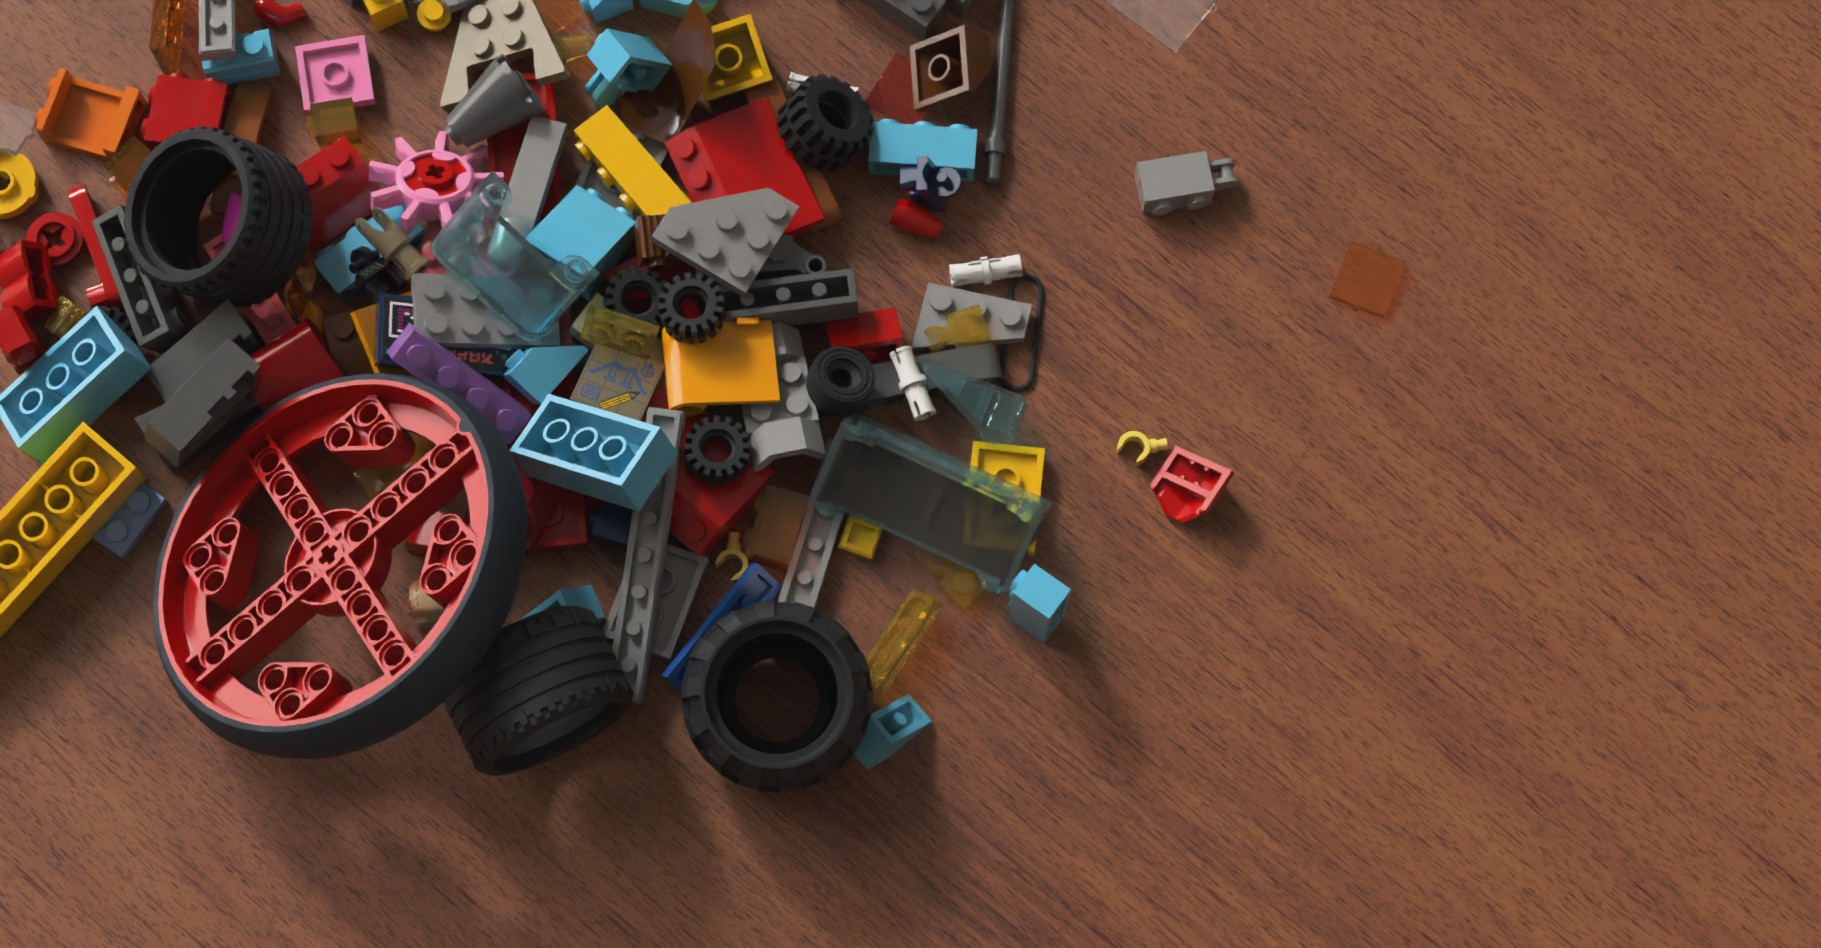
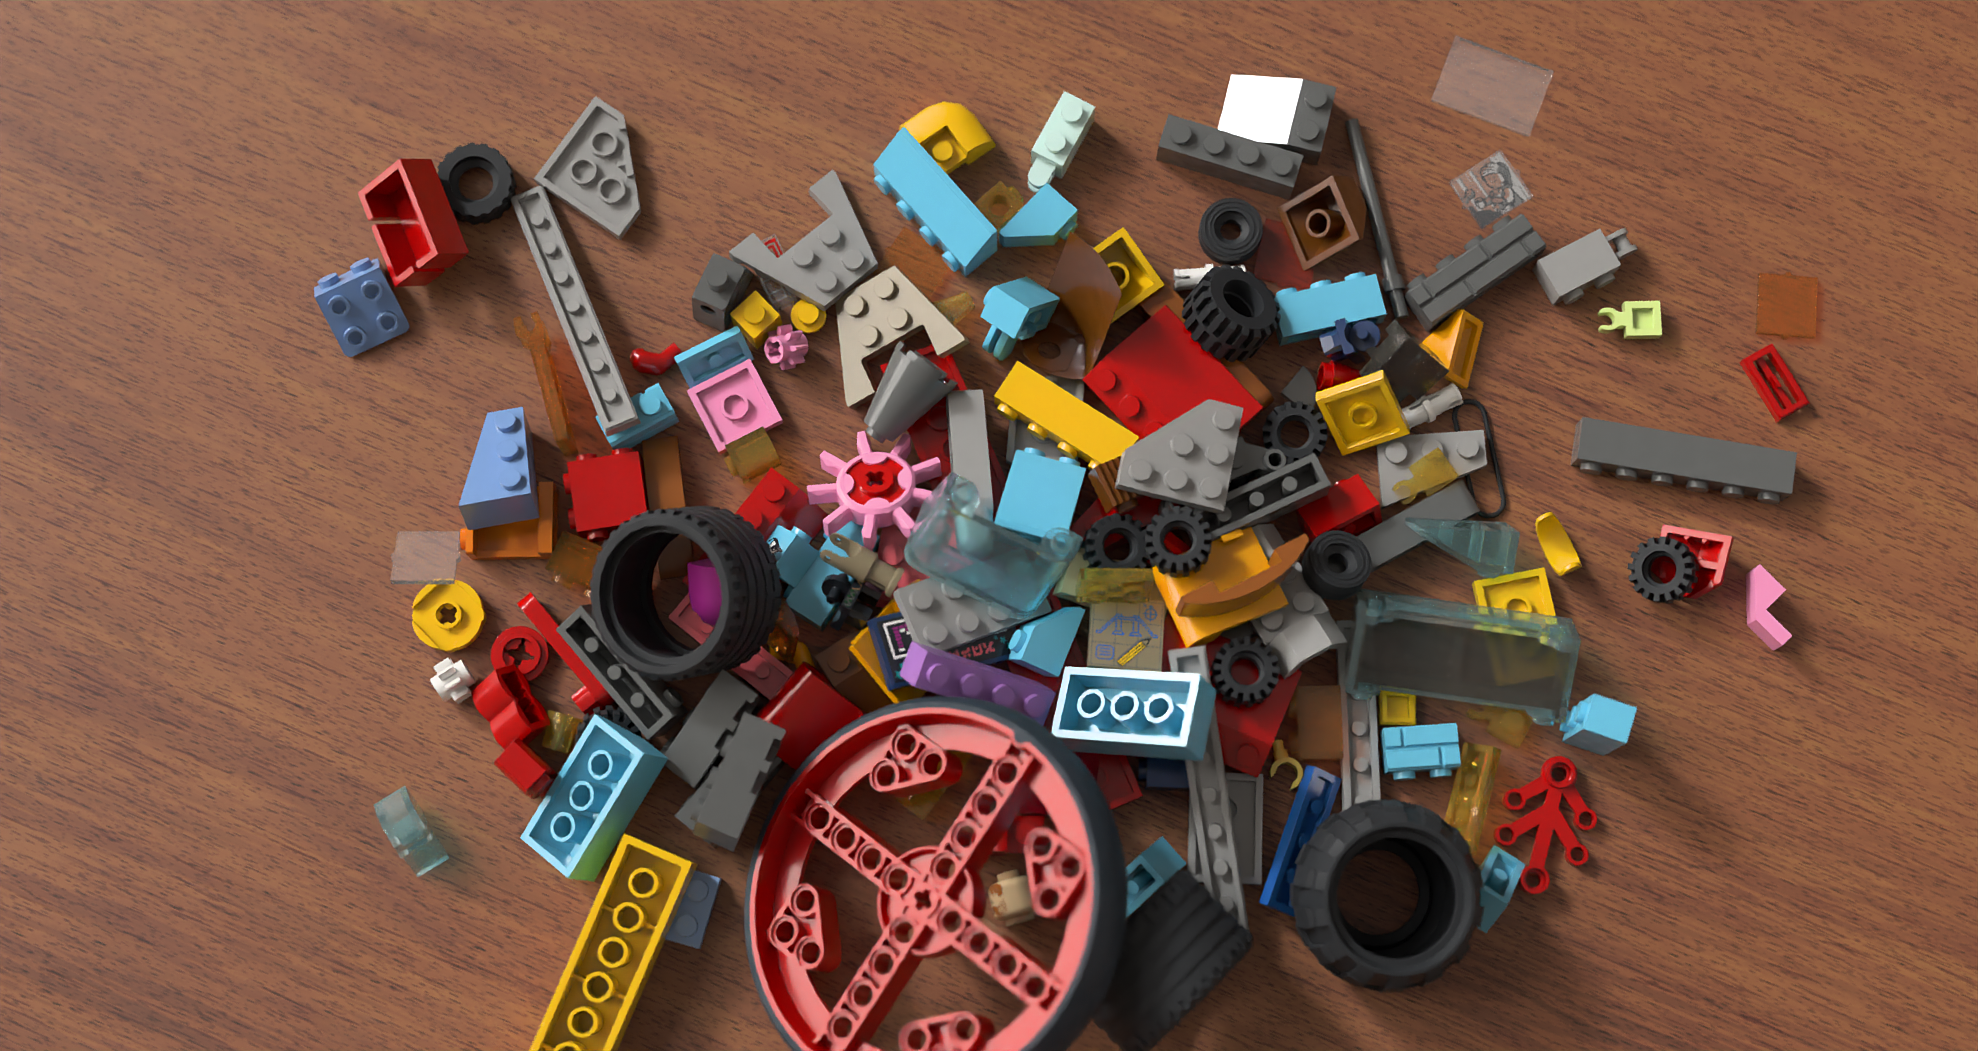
camera: 15 degrees left, 5 degrees up
(94, 66) = (502, 473): none -> medium blue wedge
(331, 23) = (713, 356): none -> medium azure plate
(333, 219) = (792, 553): none -> medium azure brick
(401, 34) = (786, 347): none -> bright pink gear
(697, 370) = (1210, 602): none -> dark orange slope
(853, 234) = (1295, 412): none -> black tyre
(854, 34) = (1236, 212): none -> black tyre
(866, 582) = (1420, 750): none -> medium azure brick
(872, 220) = (1301, 388): none -> dark grey tile
(912, 383) = (1402, 544): white pin -> none
(918, 251) = (1362, 413): none -> yellow plate
(967, 684) = (1548, 819): none -> red plant
(976, 216) = (1406, 361): none -> clear smoke hips
(1034, 222) = (1457, 345): none -> light orange slope
(1066, 429) = (1556, 544): none -> yellow helmet
(1074, 158) = (1474, 272): none -> dark grey brick
(1120, 89) = (1491, 189): none -> clear piece
(1143, 473) = (1682, 580): none -> black tyre
(1149, 445) = (1636, 532): light yellow piece -> none
(1214, 390) = (1683, 460): none -> dark grey brick
(1217, 248) = (1637, 320): none -> yellowish green plate
(1248, 538) = (1761, 592): none -> bright pink slope
(1336, 375) = (1762, 388): none -> red tile

